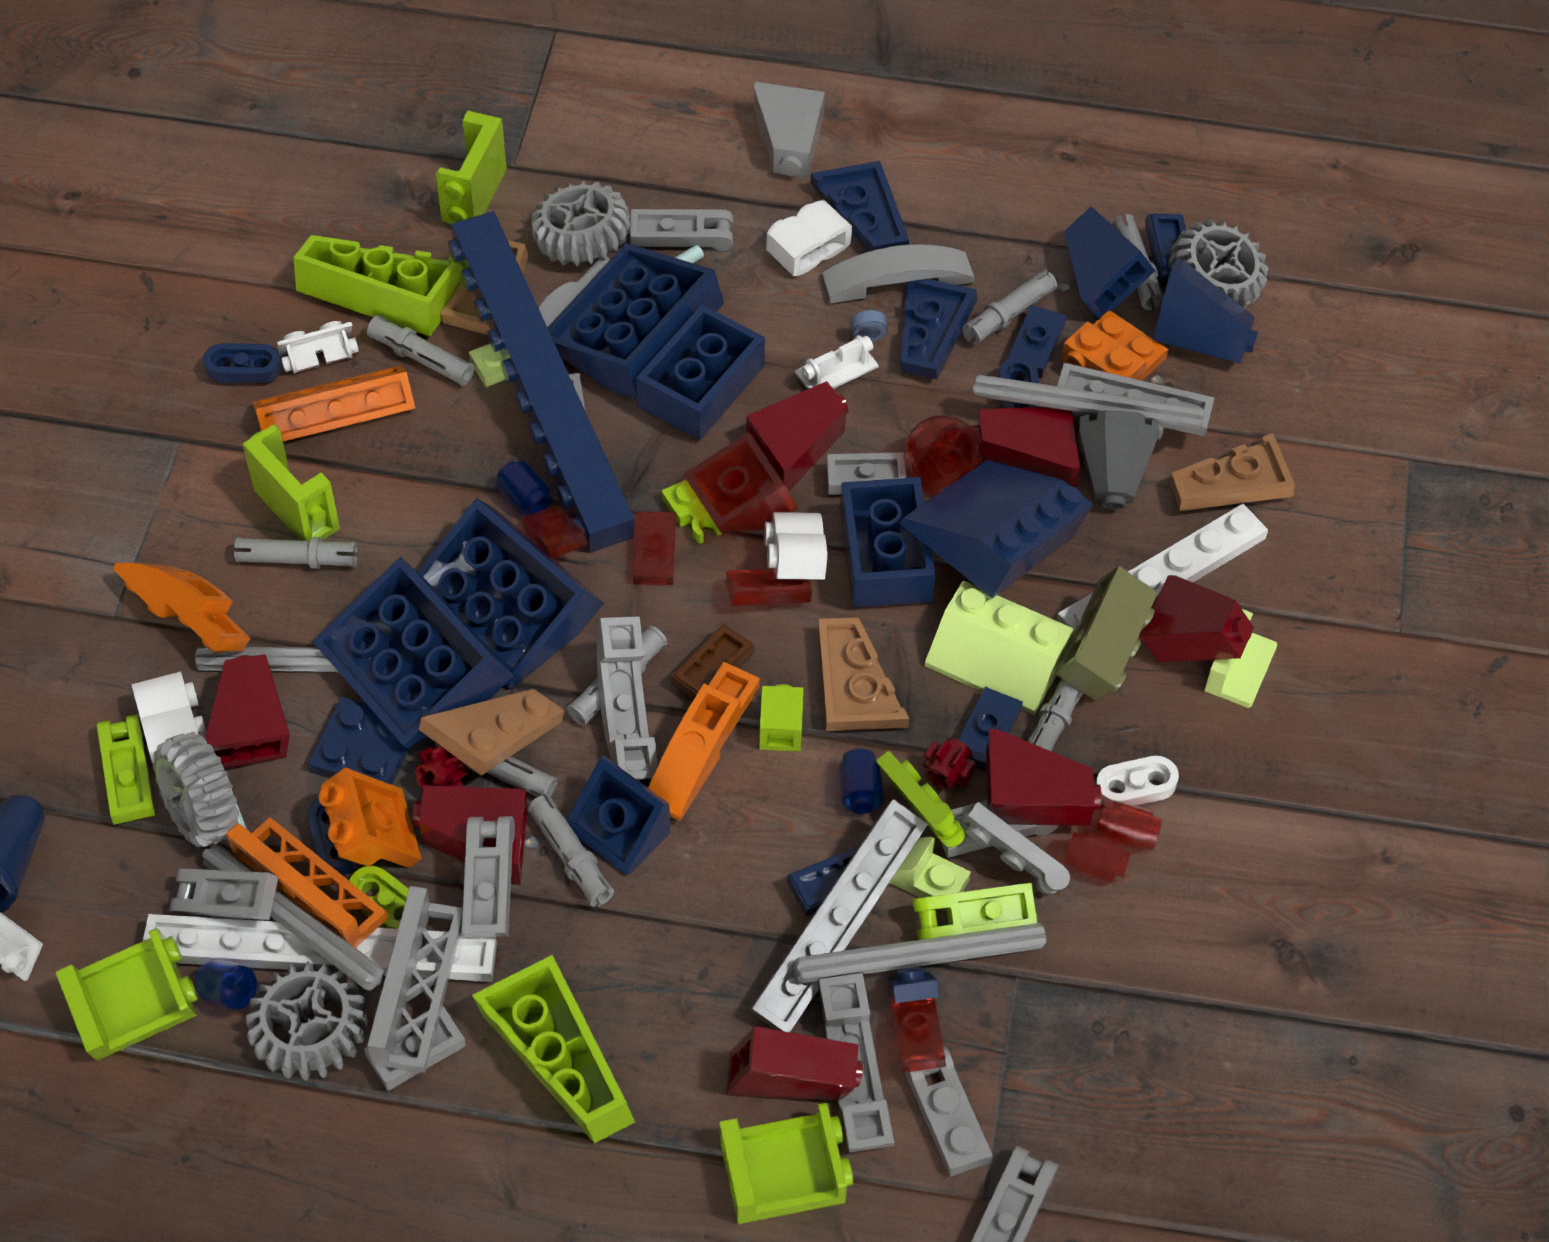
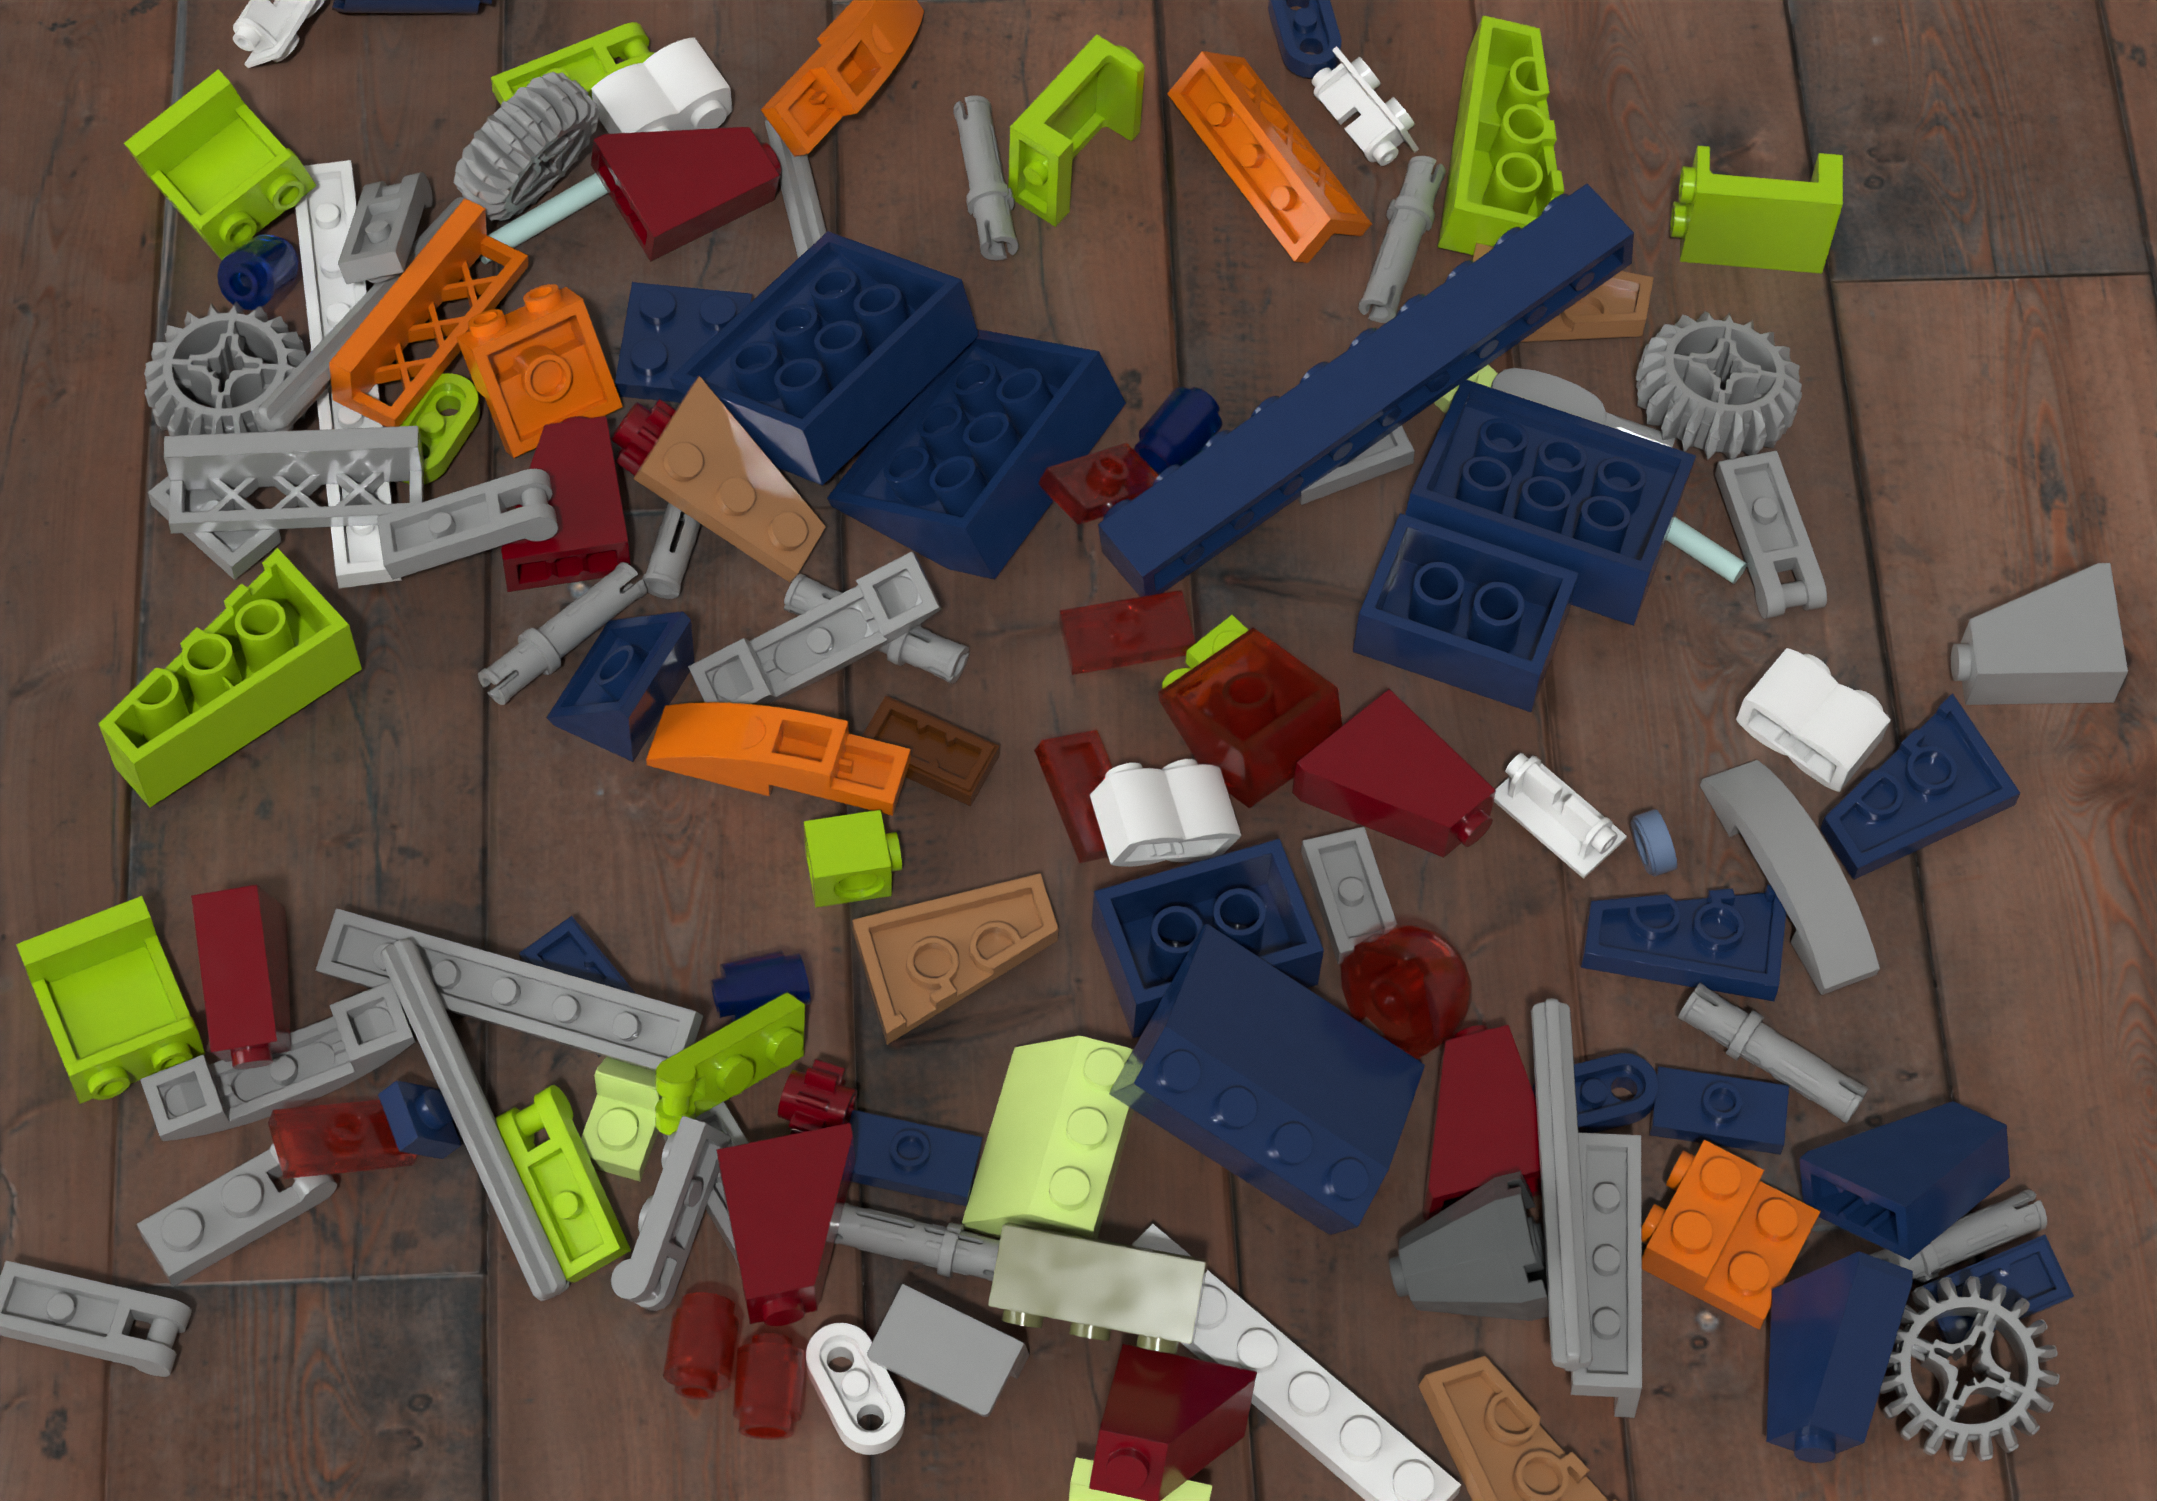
camera: 75 degrees right, 5 degrees up
(1126, 725) = (946, 1351): none -> light grey panel

